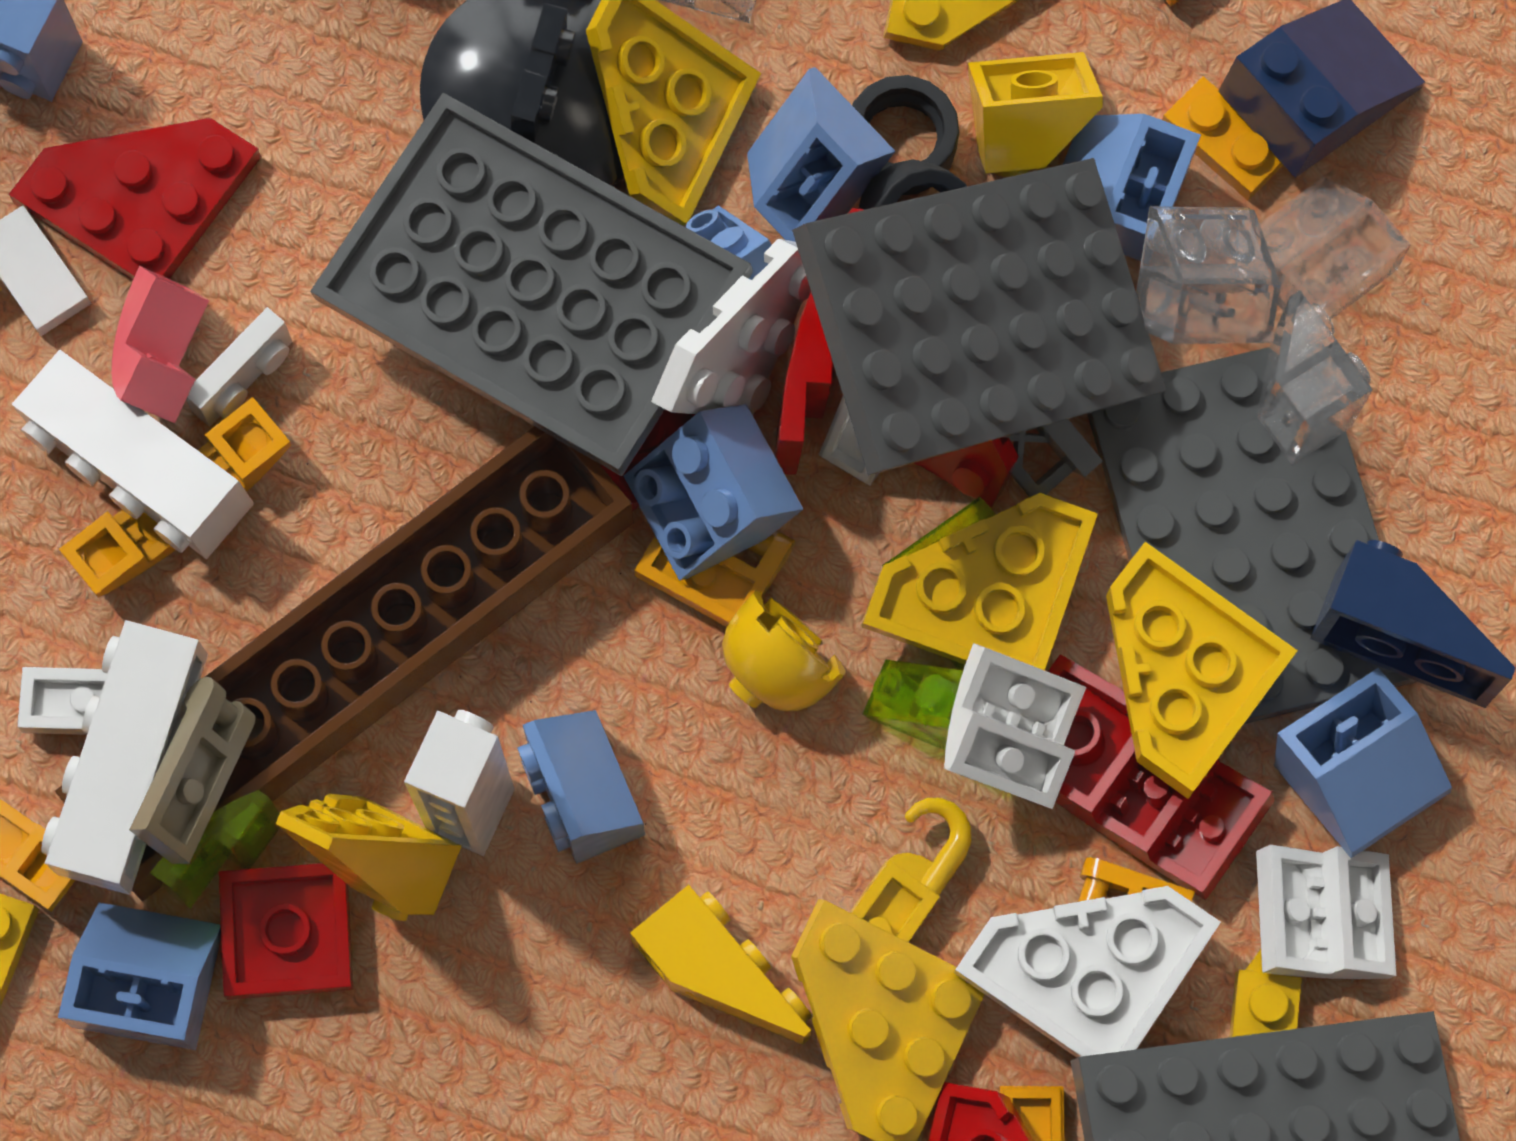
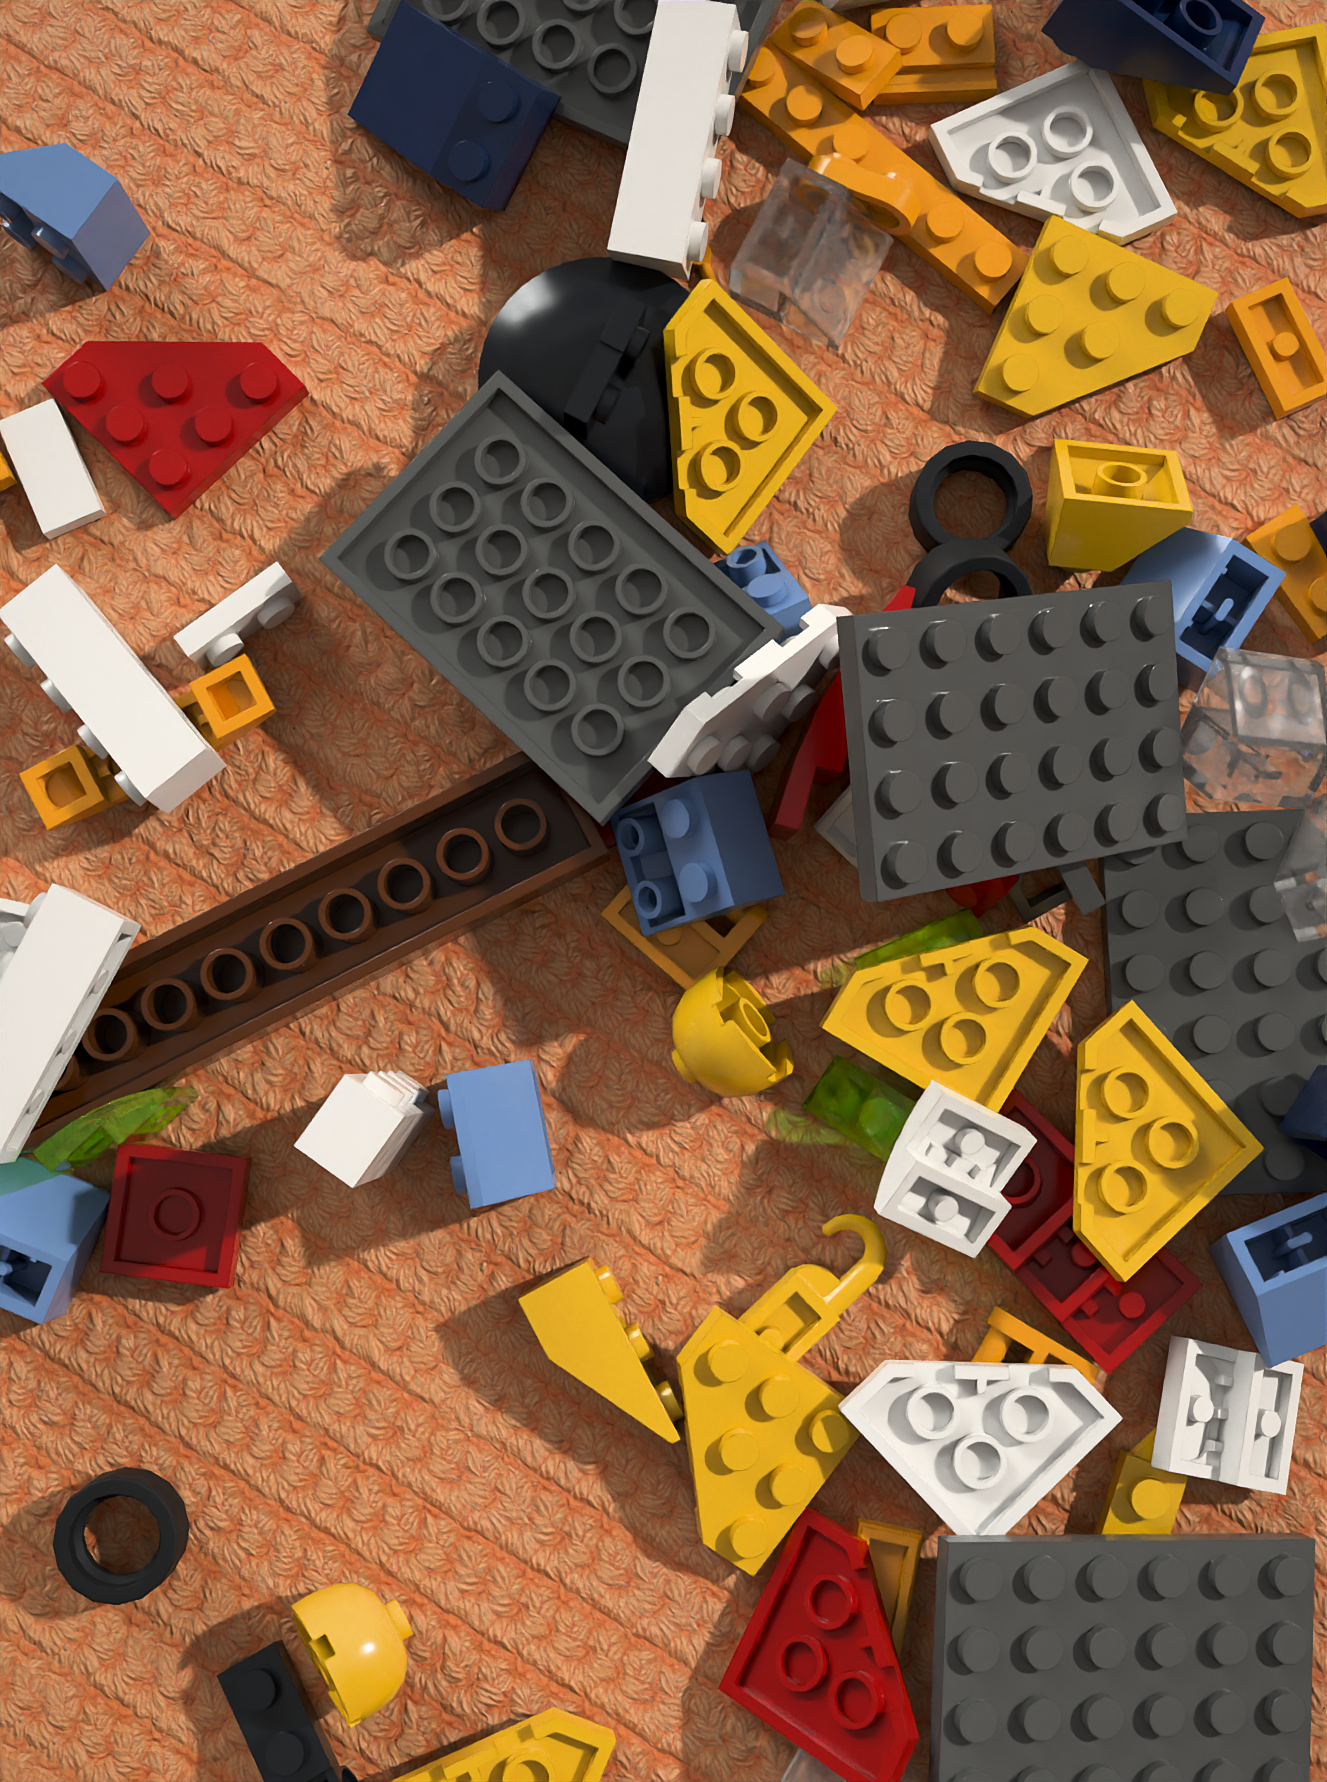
camera: 10 degrees right, 10 degrees up
(151, 343) = (153, 576): coral brick -> none
(193, 772) = (93, 1059): dark tan plate -> none
(375, 852) = (249, 1169): yellow wedge -> none
(813, 157) = (873, 517): medium blue slope -> none

